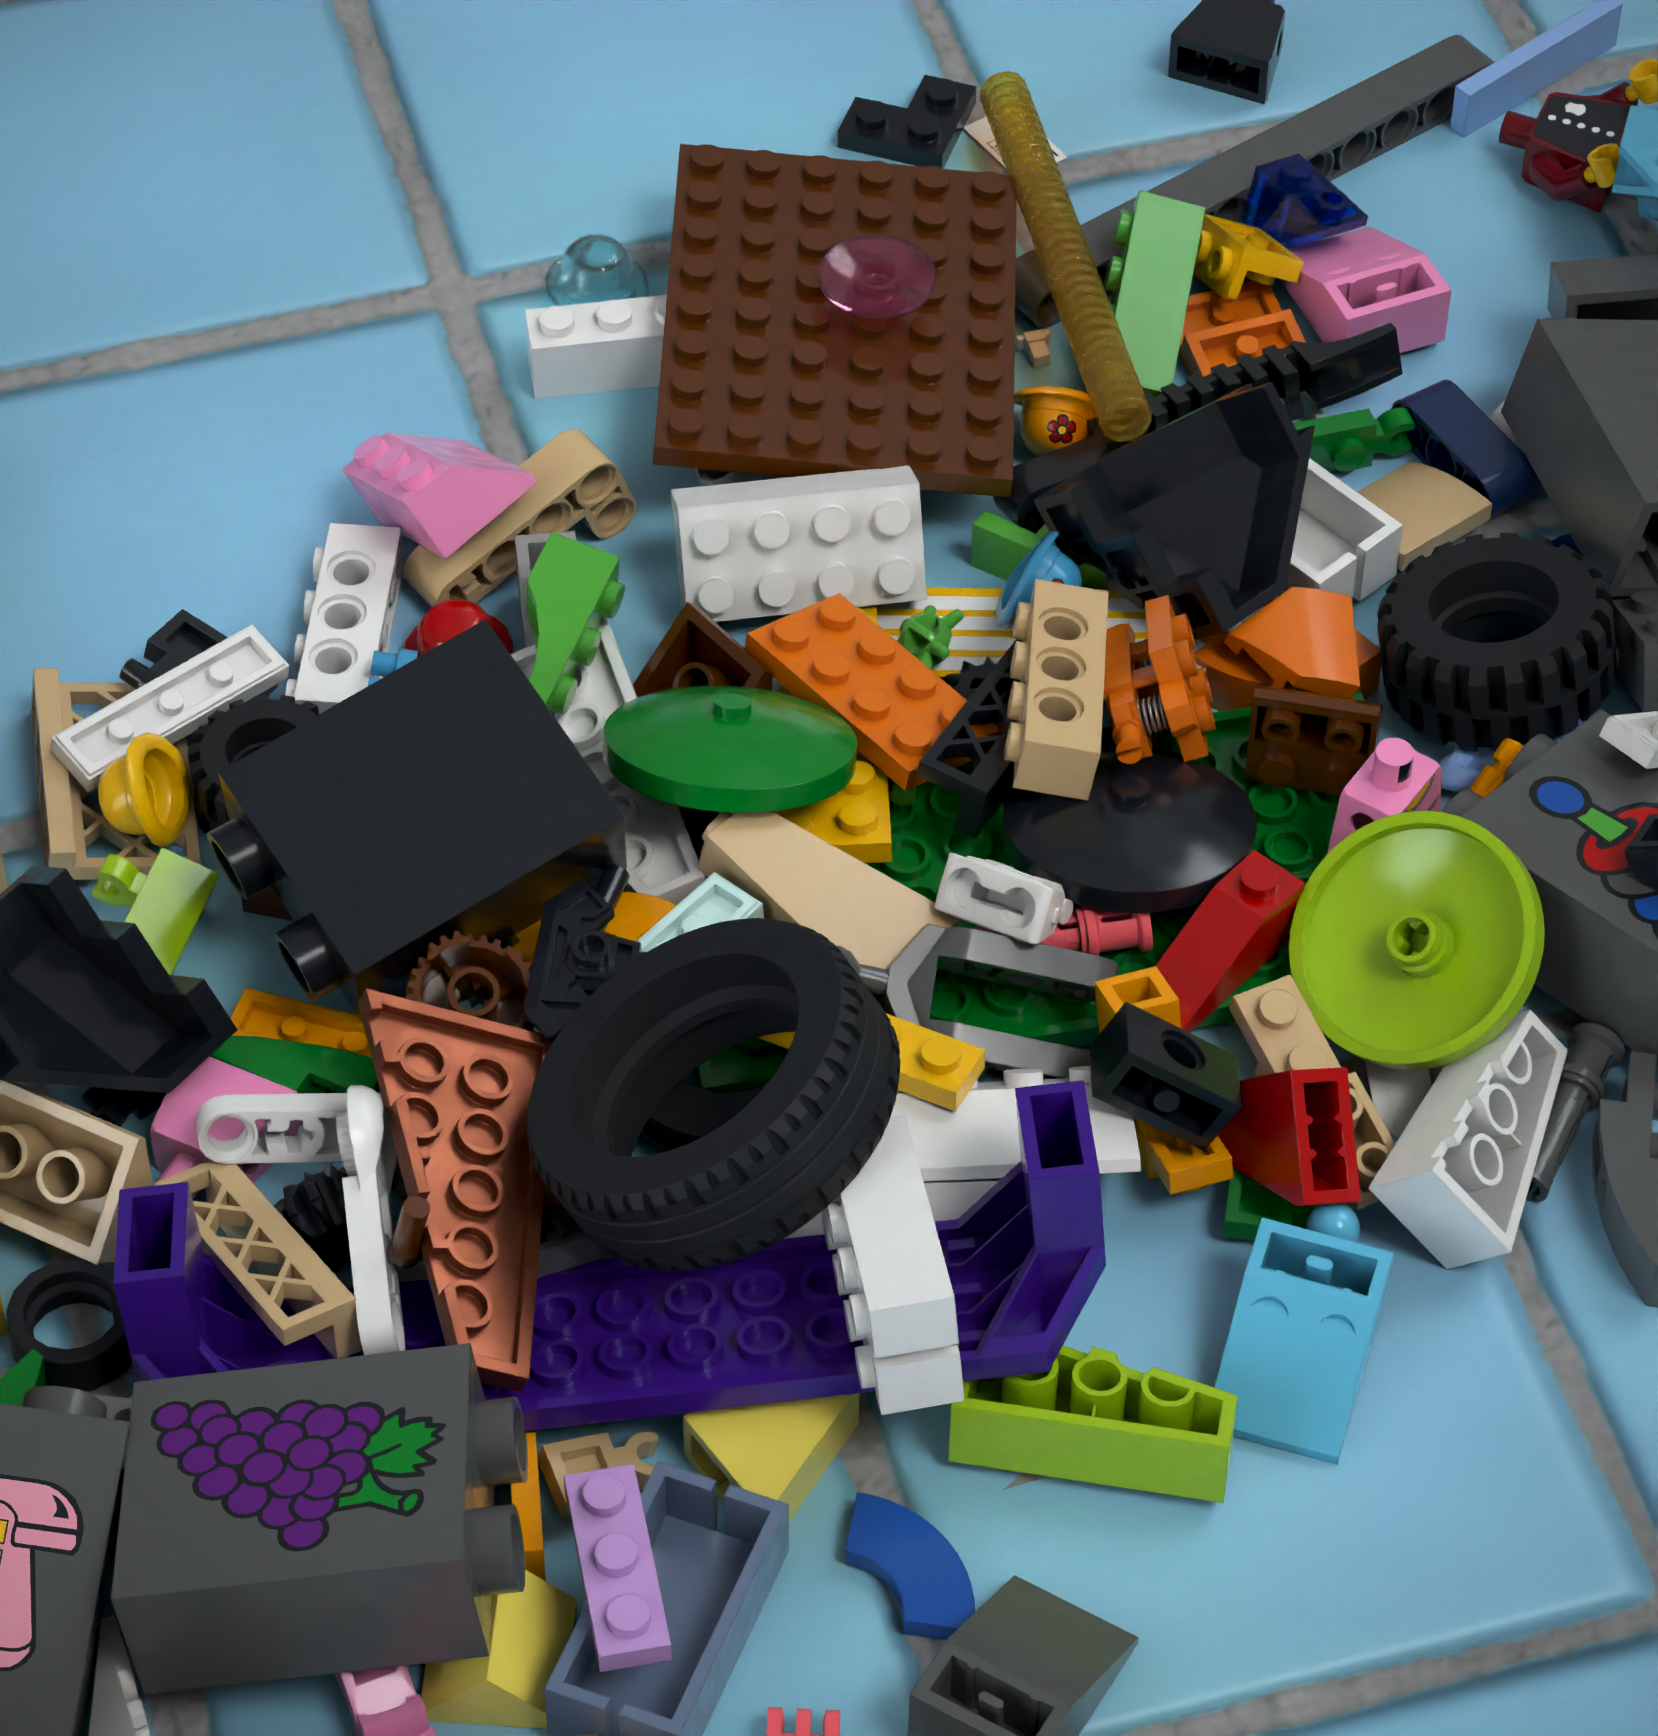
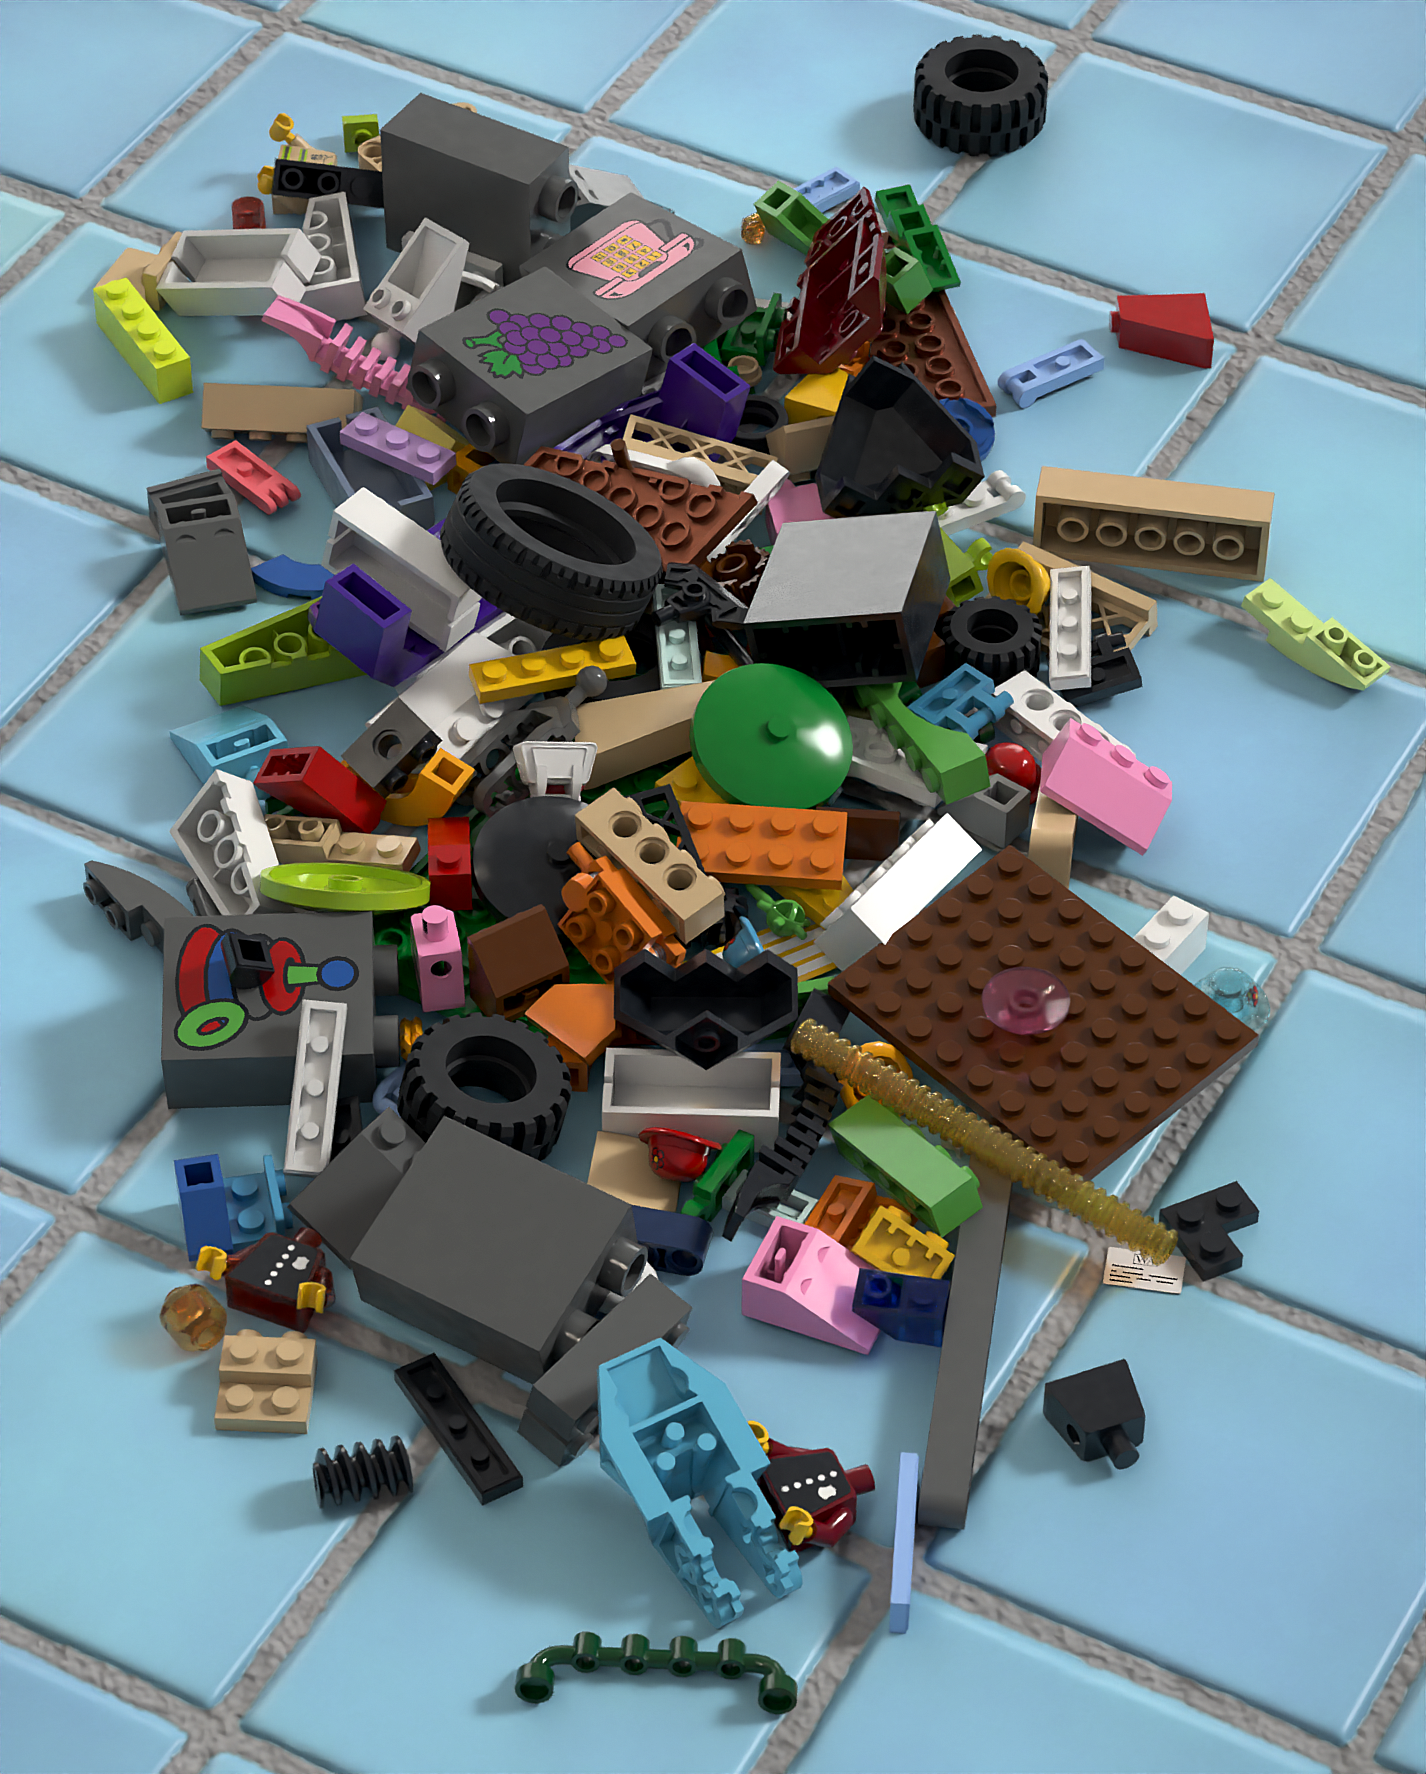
camera: 135 degrees right, 5 degrees down
(1357, 450) = (676, 1153): none -> red hat

